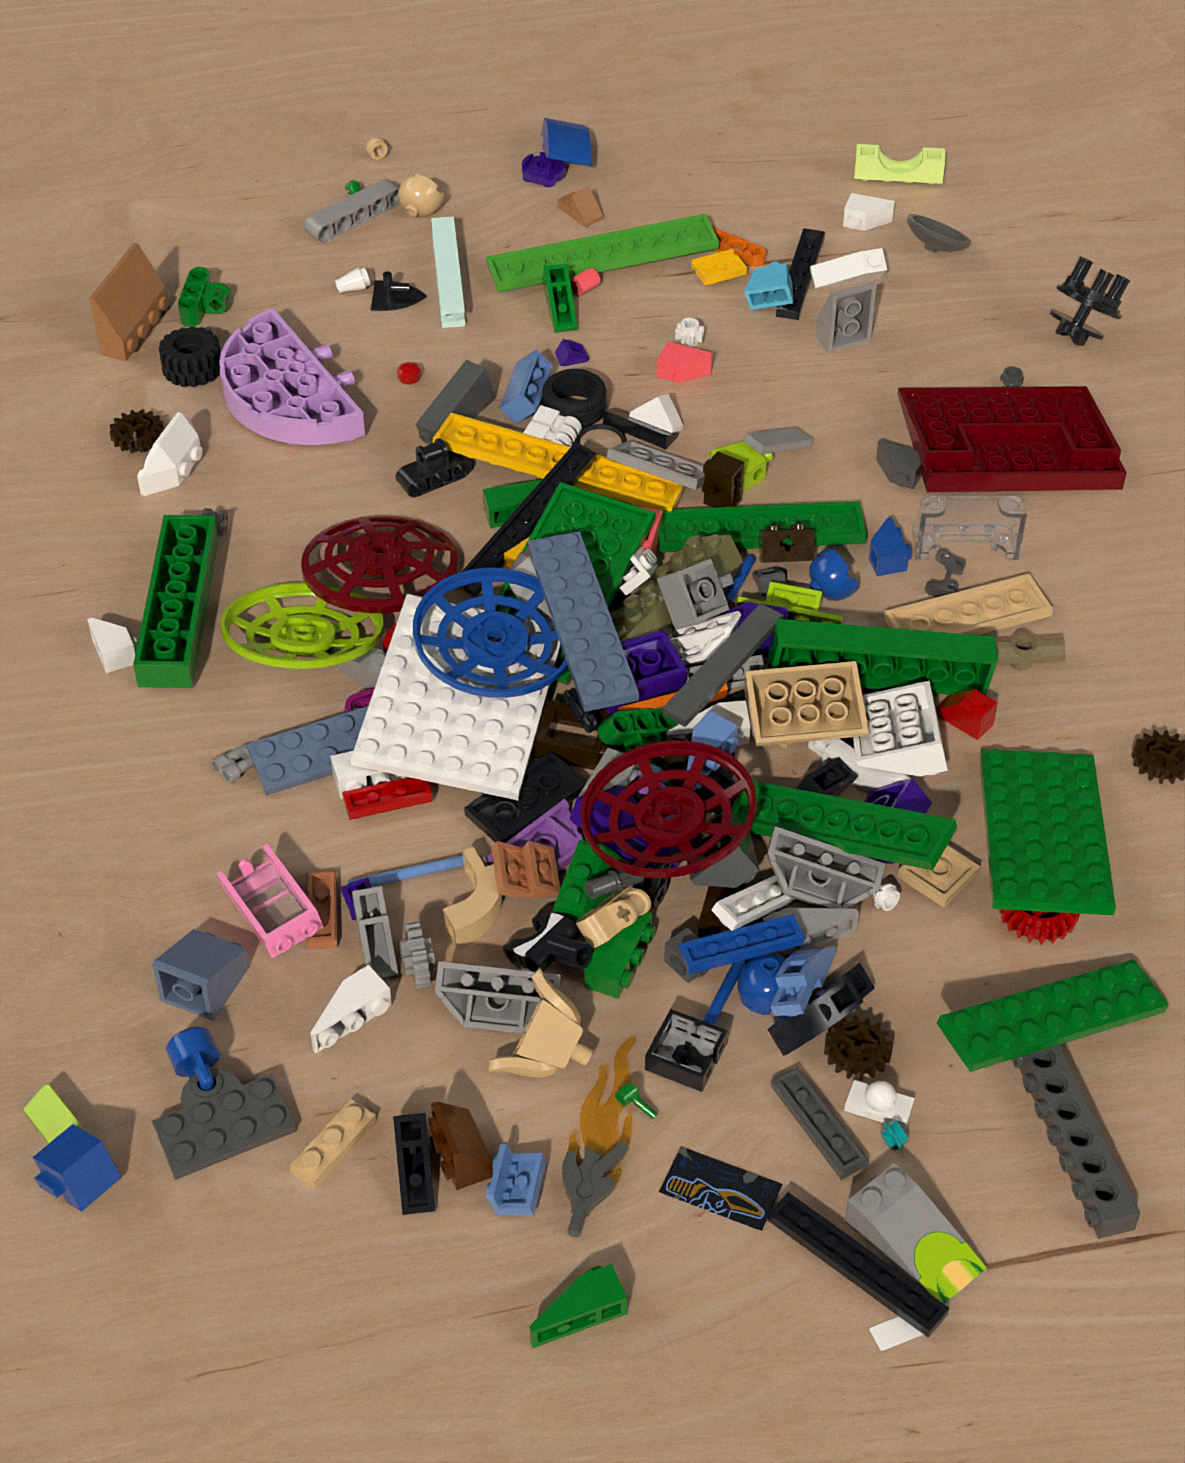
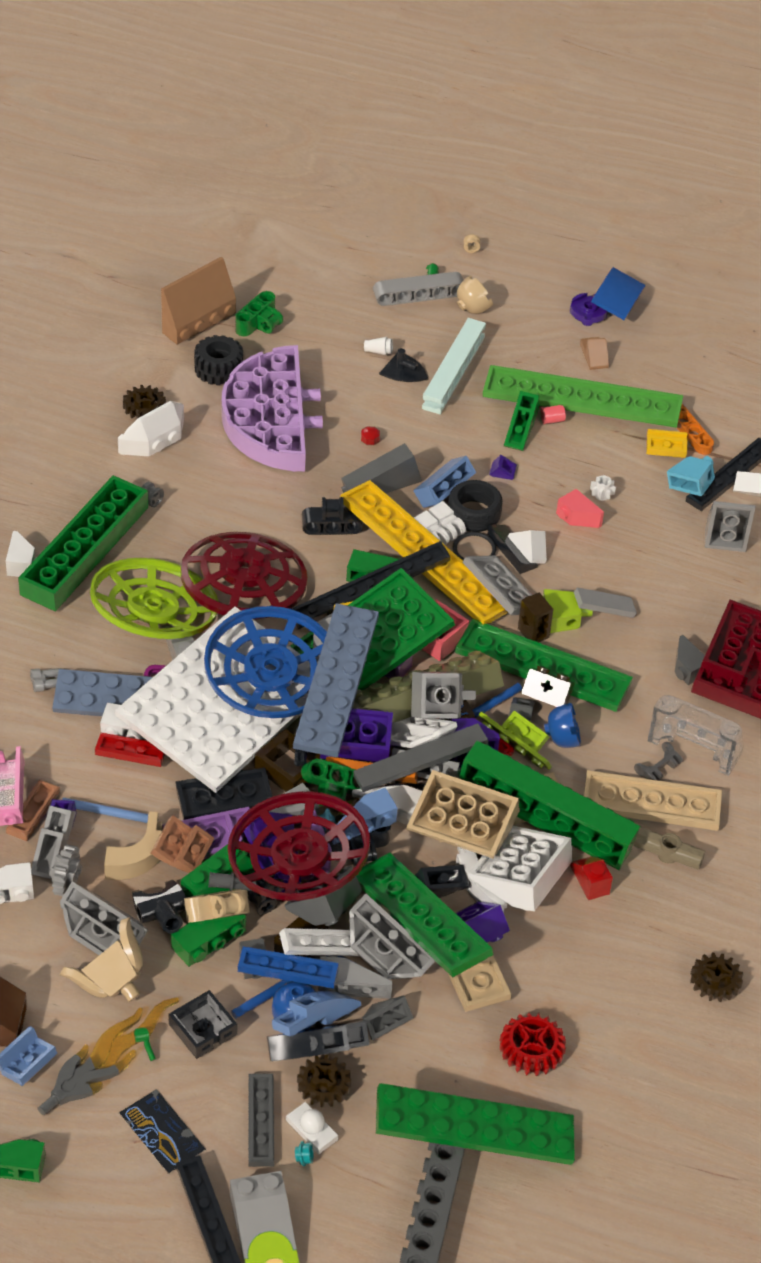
camera: 25 degrees right, 0 degrees up
(643, 568) = (422, 657): white bracket -> none
(870, 947) = (386, 1016): none -> dark grey slope
(886, 897) = (427, 984): white plate -> none
(888, 551) = (625, 724): blue slope -> none
(1045, 833) = (576, 990): green plate -> none

